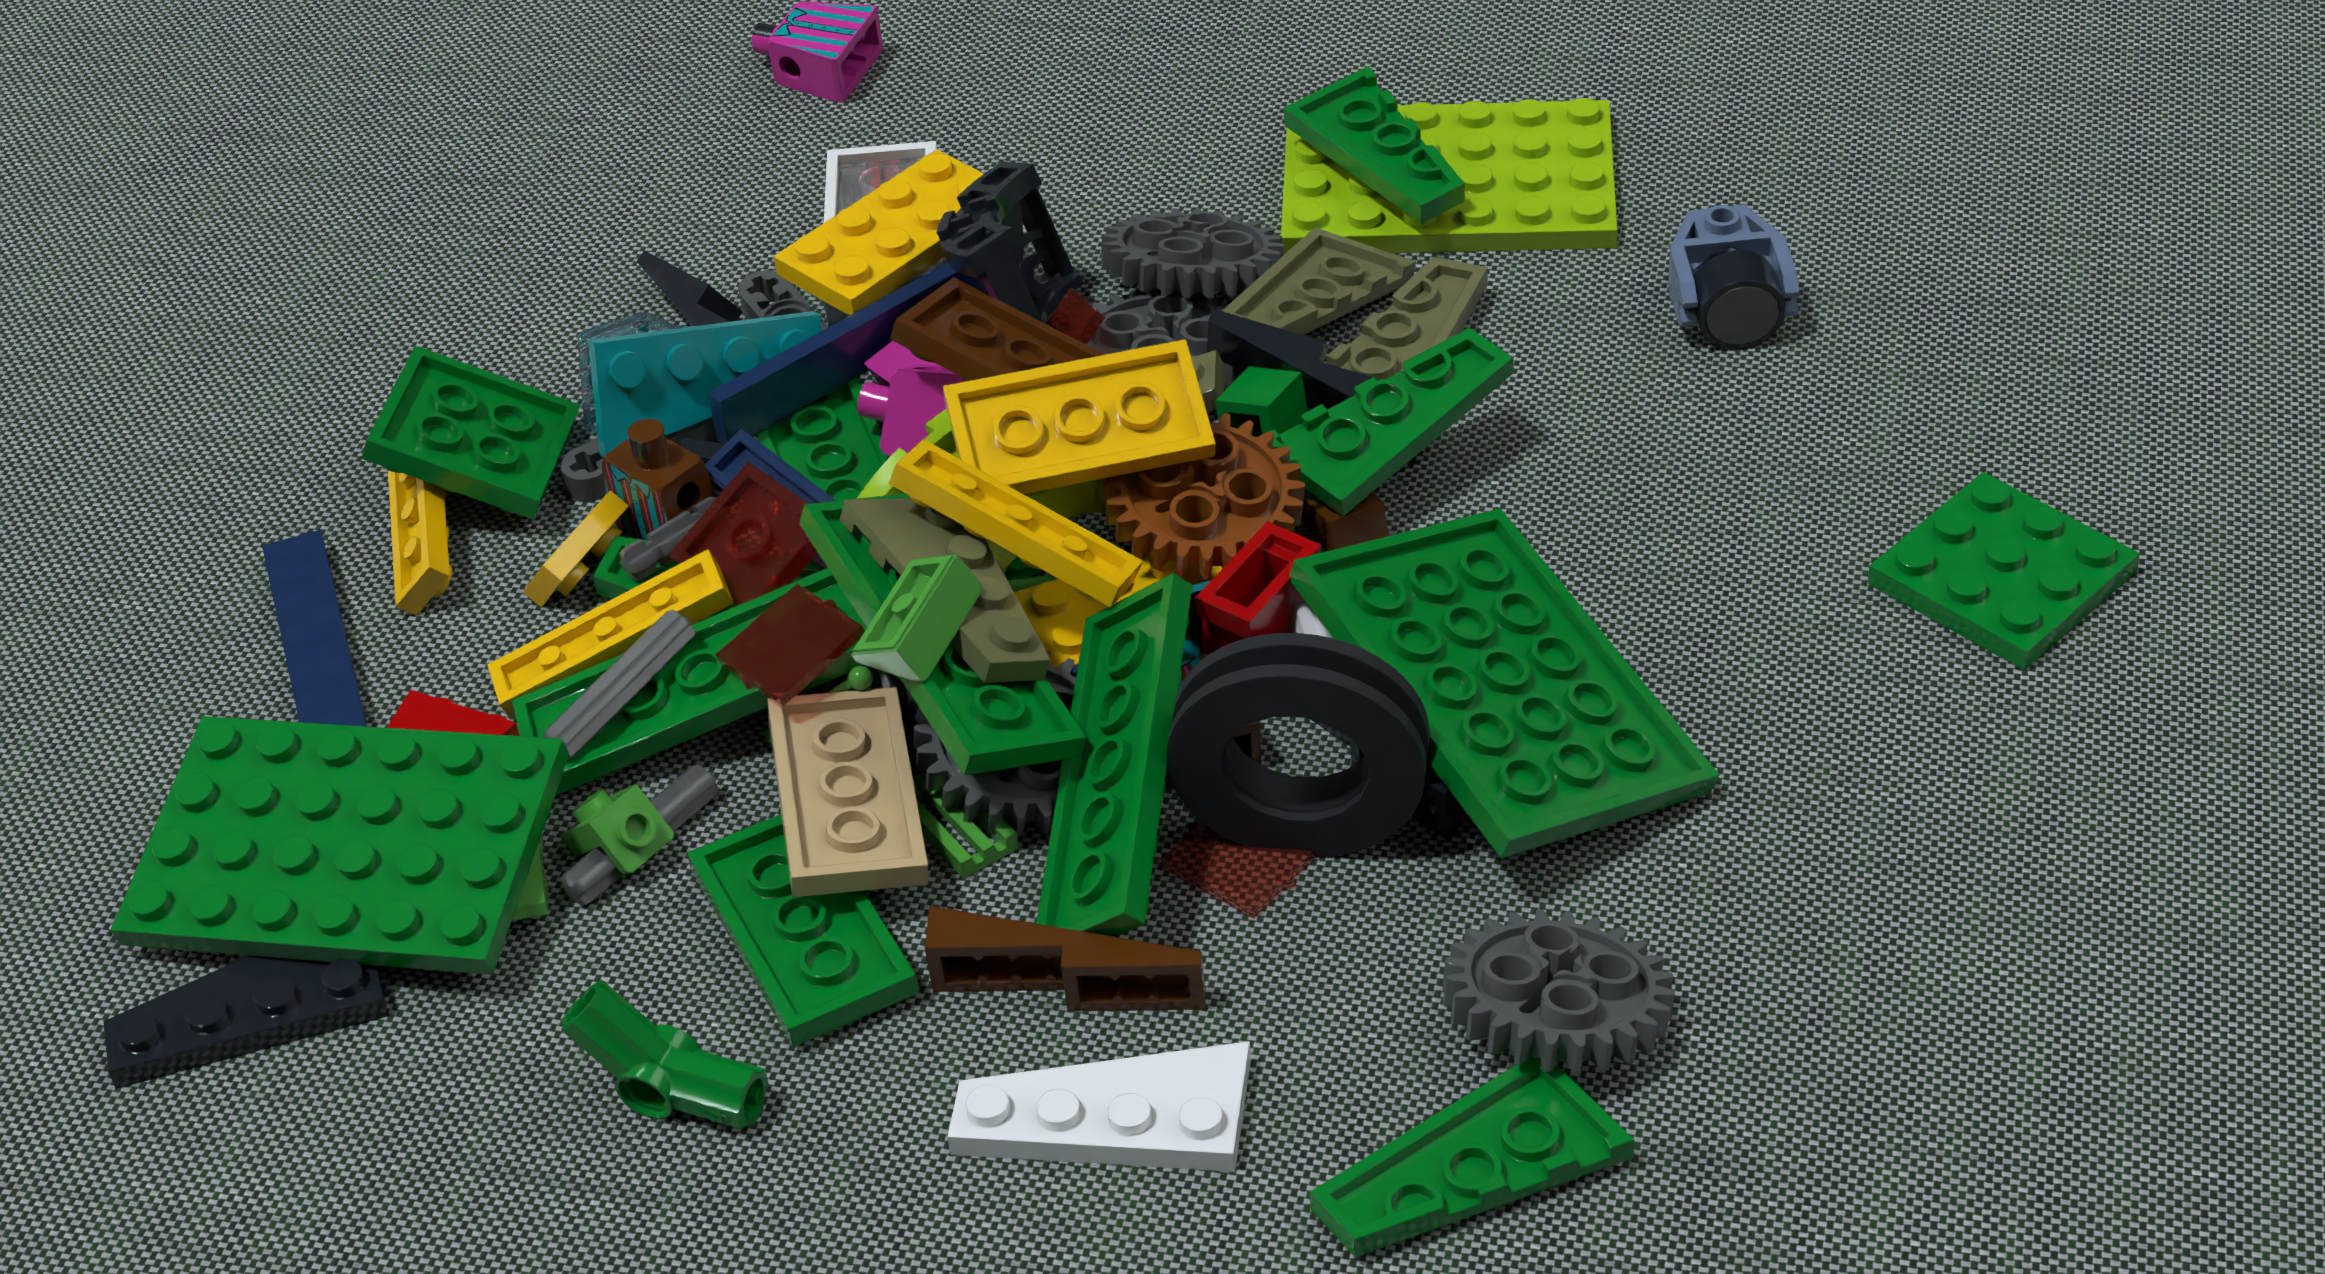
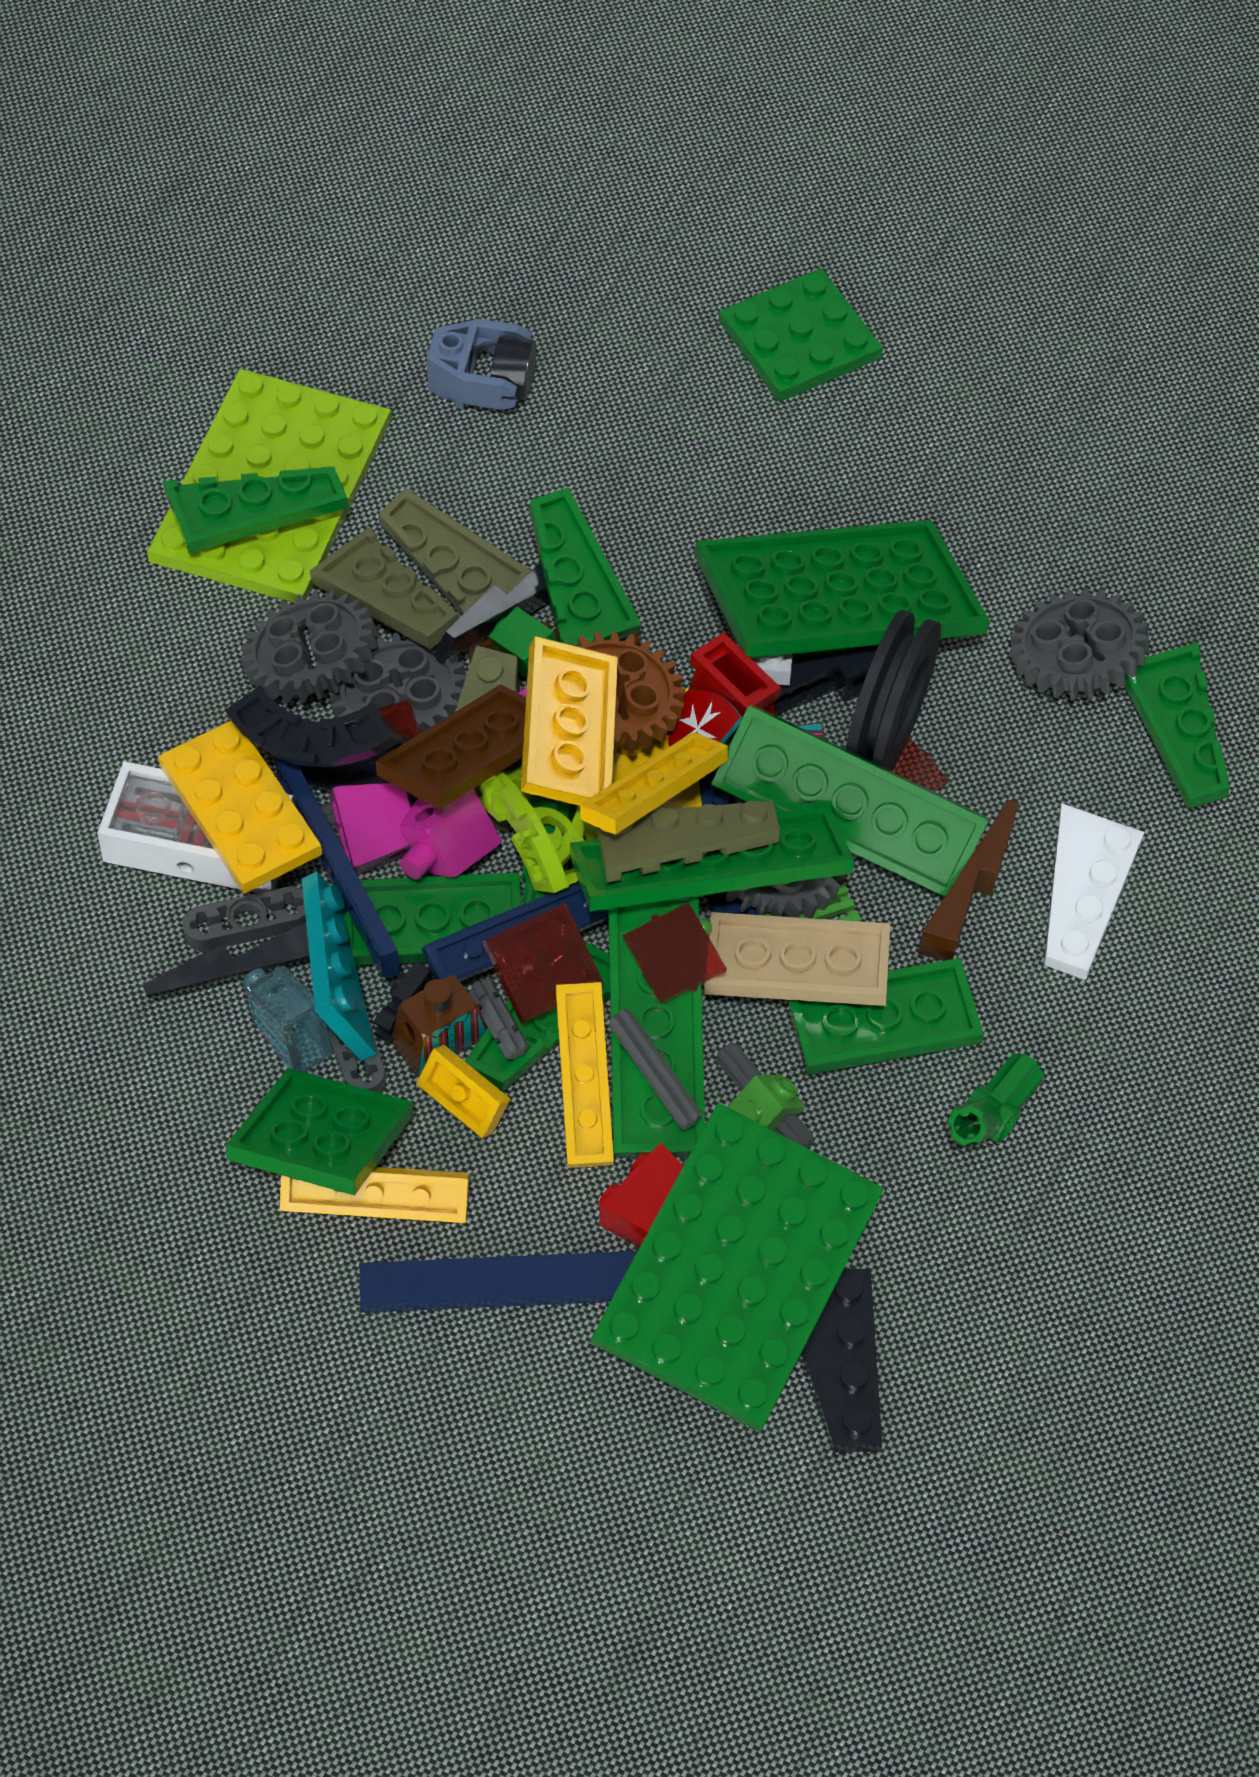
camera: 80 degrees left, 15 degrees up
(919, 617) = (732, 854): bright green slope -> none

